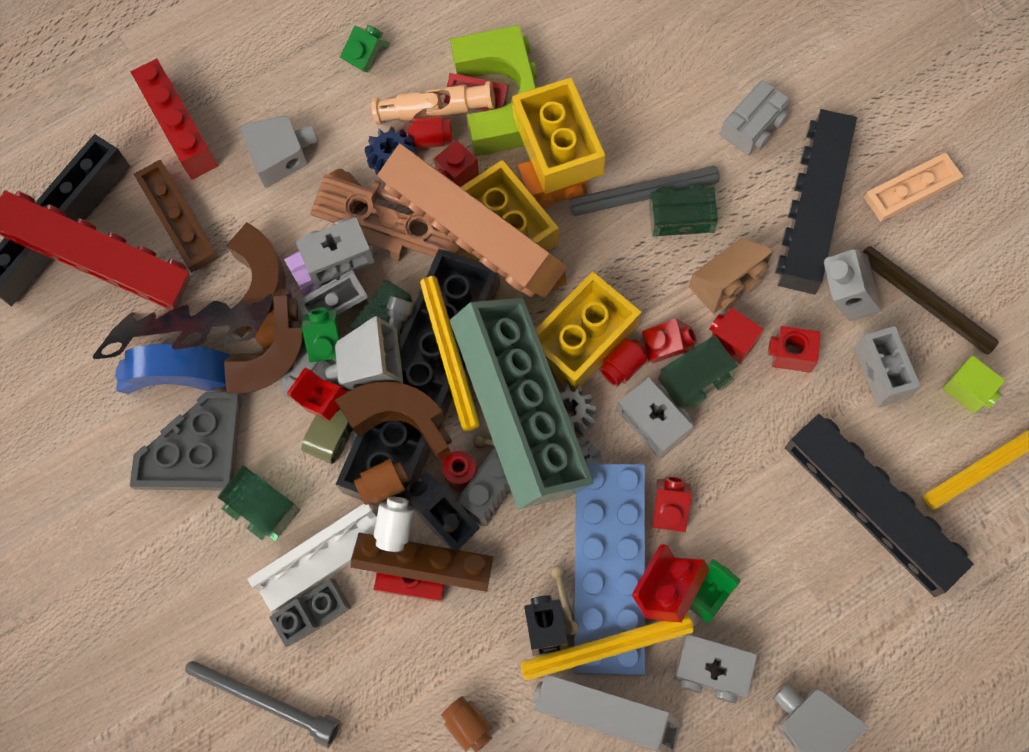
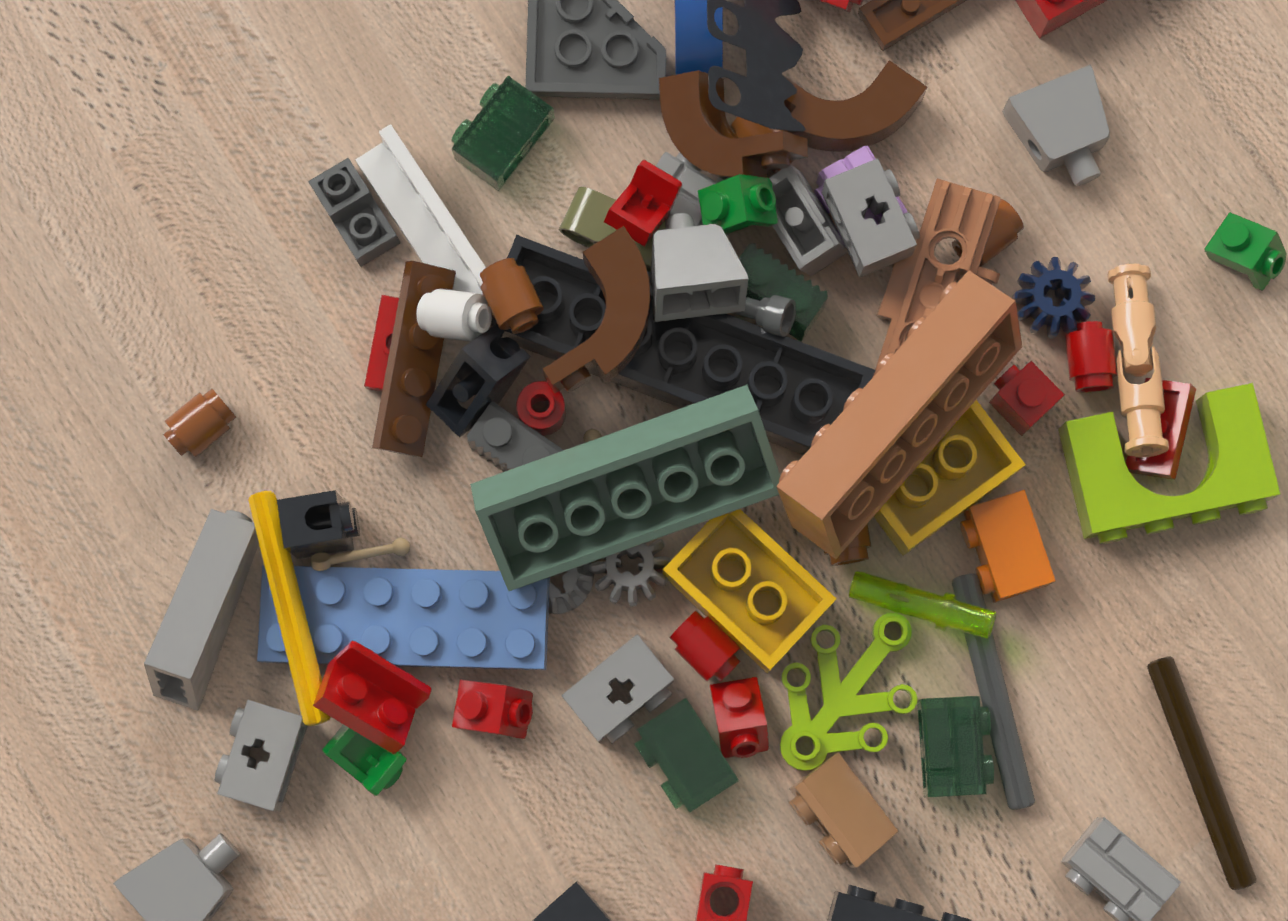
camera: 85 degrees right, 10 degrees up
(321, 728) = (202, 234): dark grey piece -> none
(449, 354) = (704, 386): yellow axle -> none
(558, 135) = (1060, 547): yellow brick -> none
(595, 214) = (924, 605): none -> clear neon green pin
(654, 278) = (842, 697): none -> lime plant
(689, 76) = (1201, 773): none -> dark brown axle
(736, 334) = (747, 814): red brick -> none

